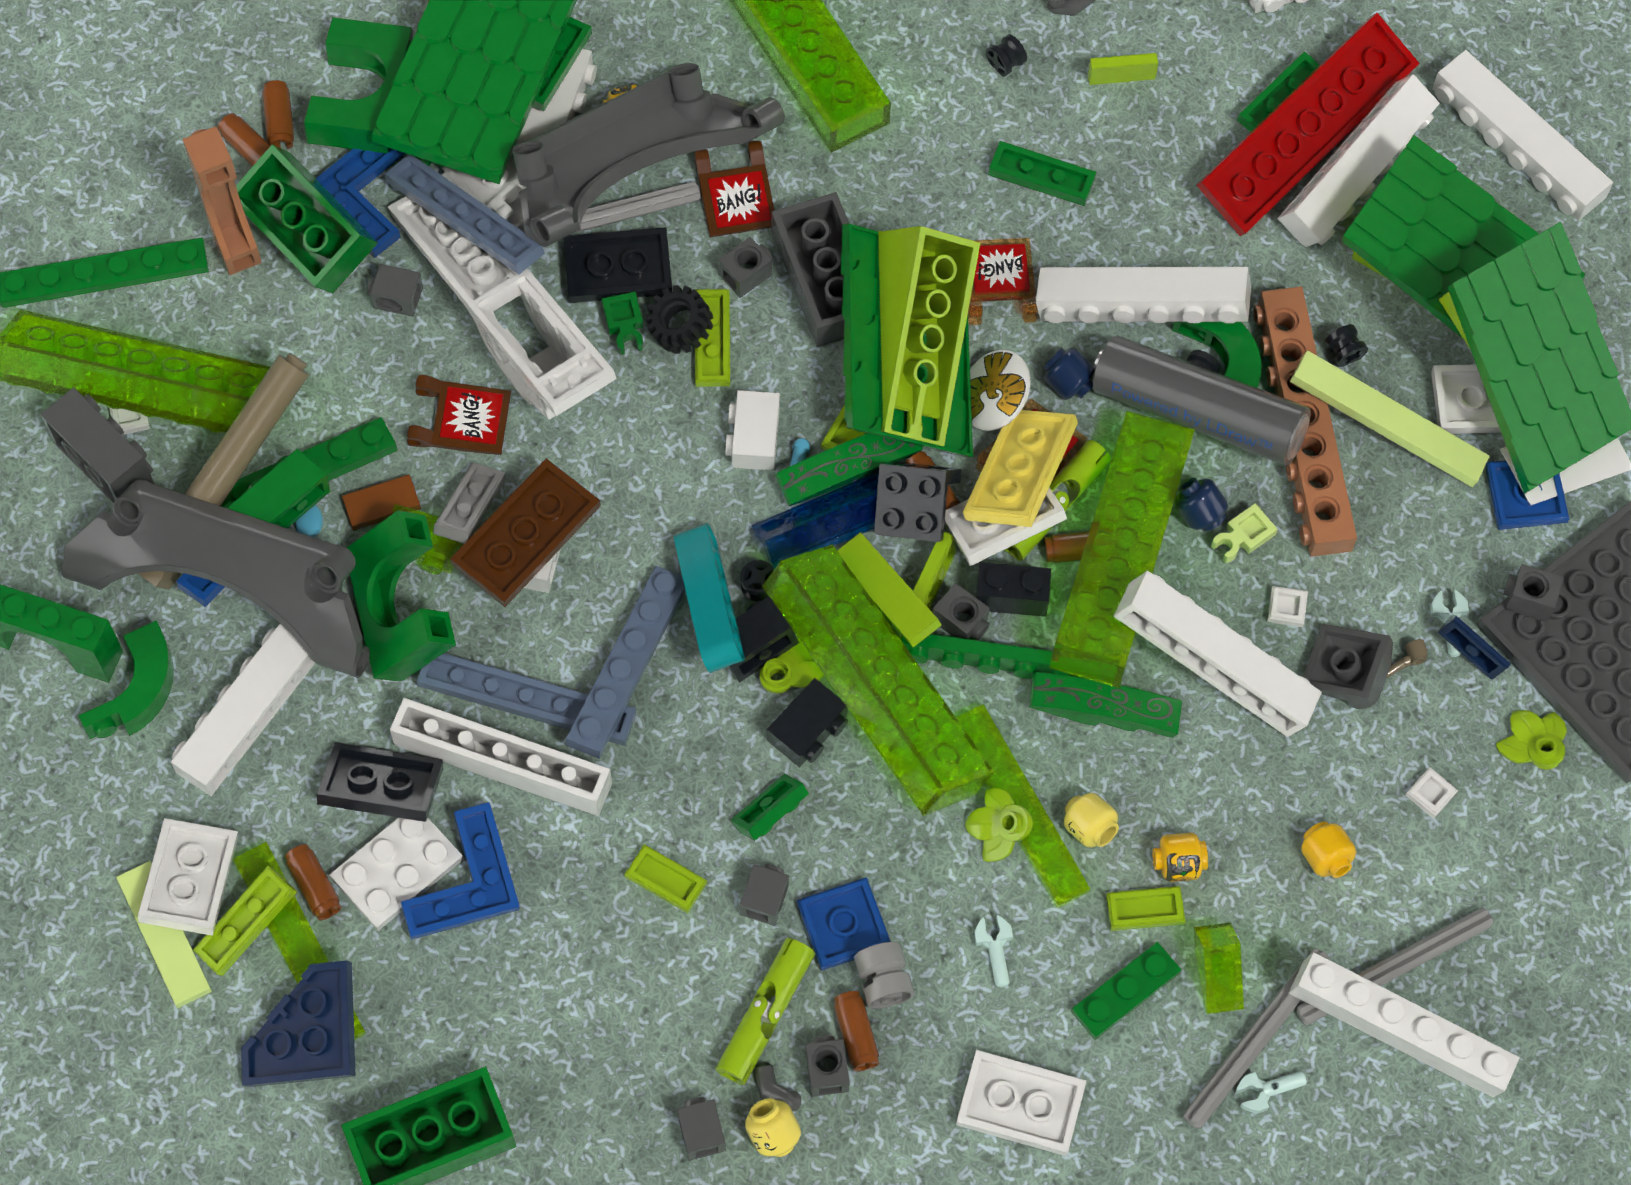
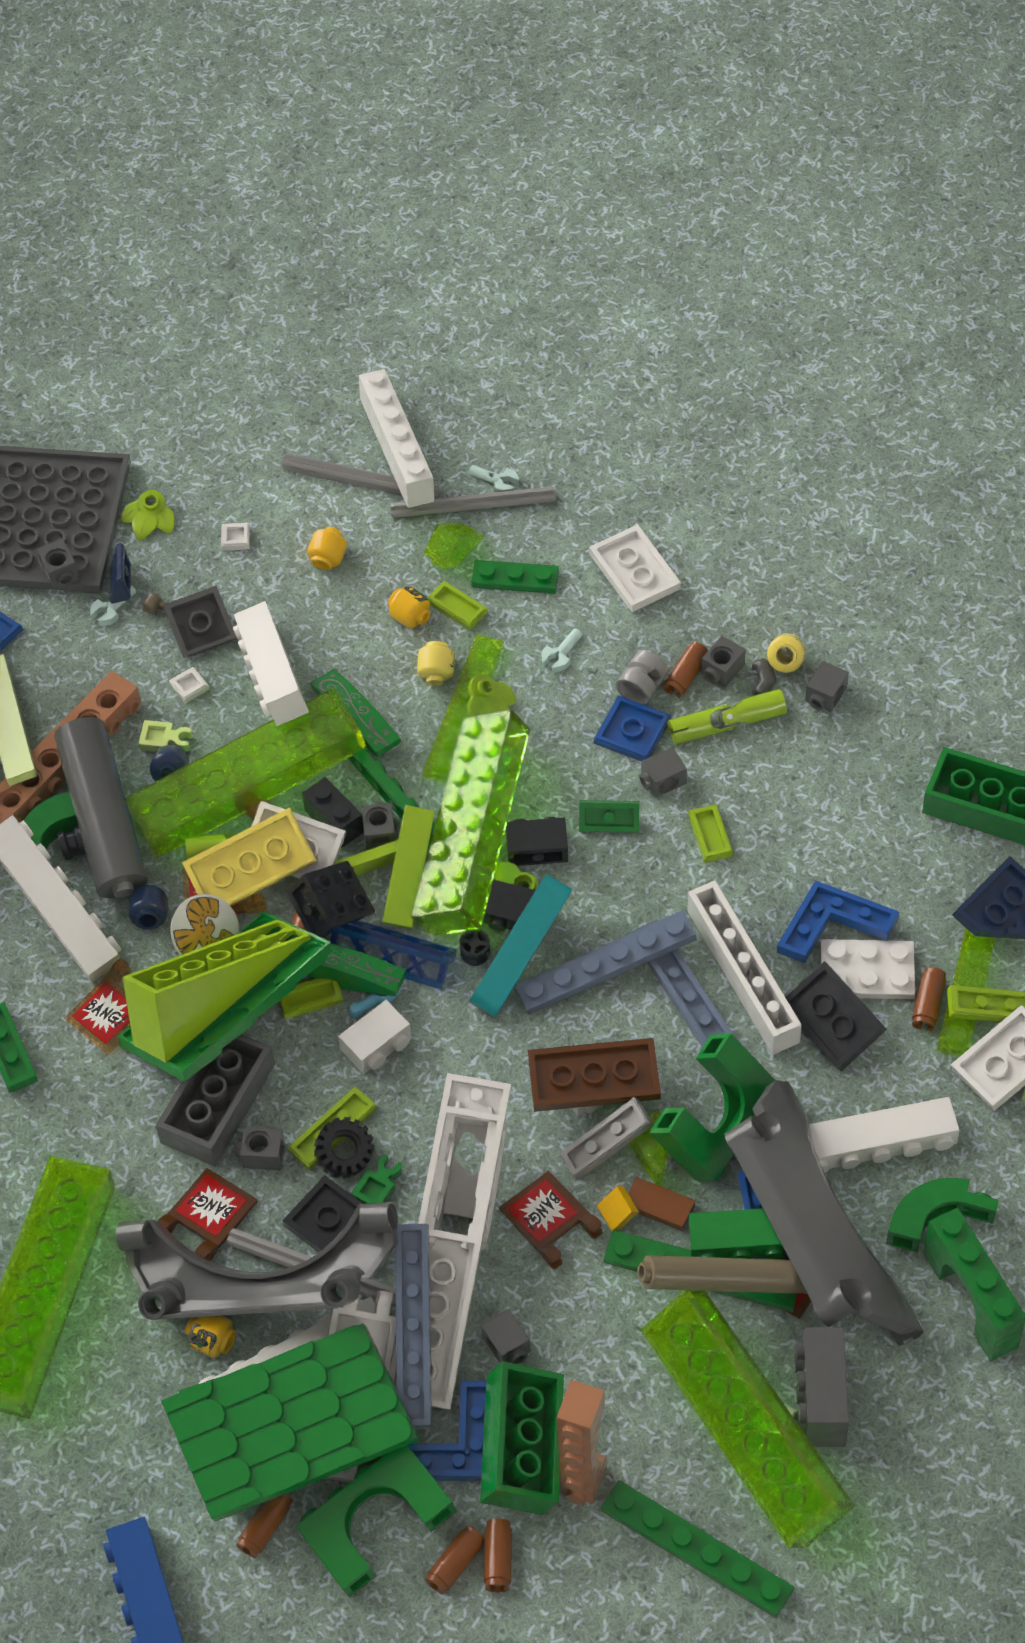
camera: 130 degrees left, 10 degrees down
(408, 464) = (617, 1208): none -> yellow tile

